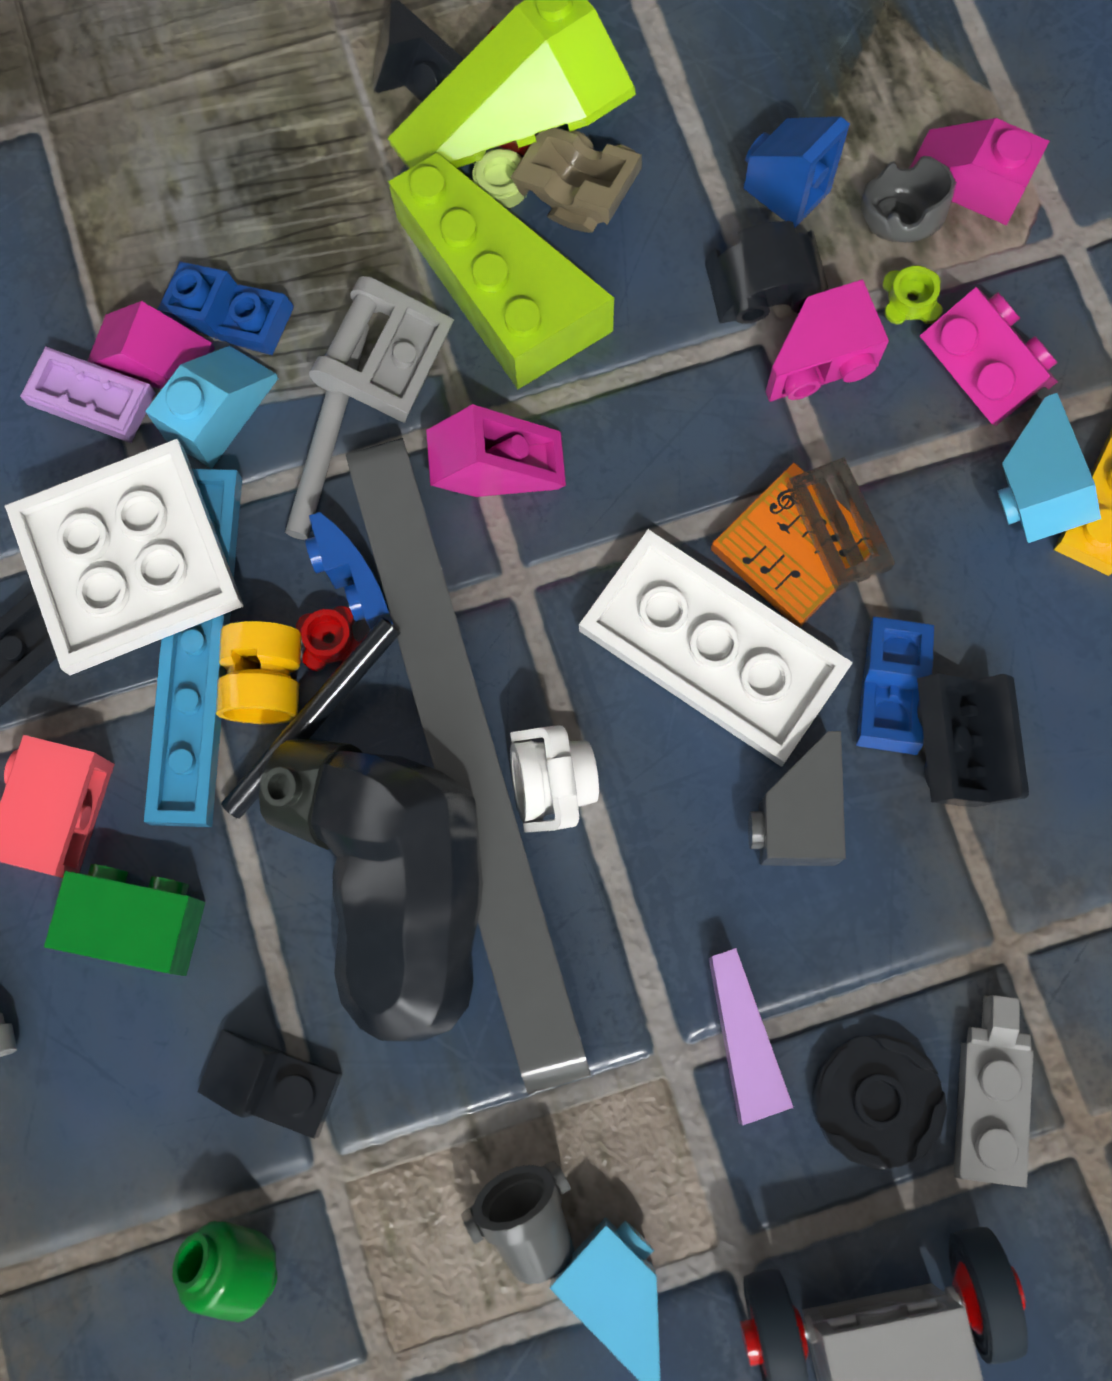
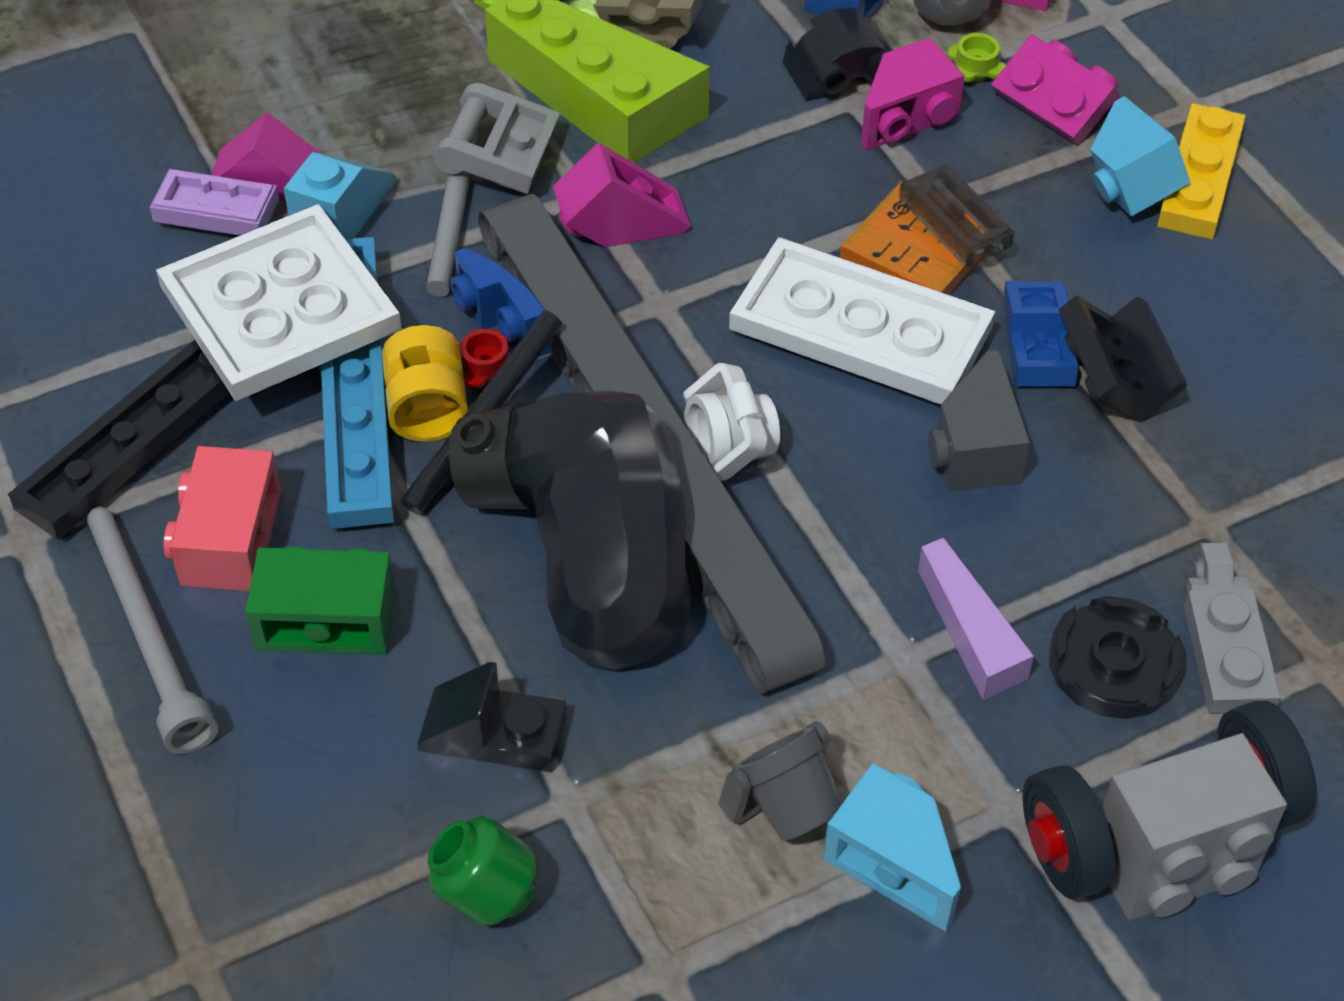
camera: 15 degrees left, 25 degrees down
(222, 309) = (357, 136): blue slope -> none

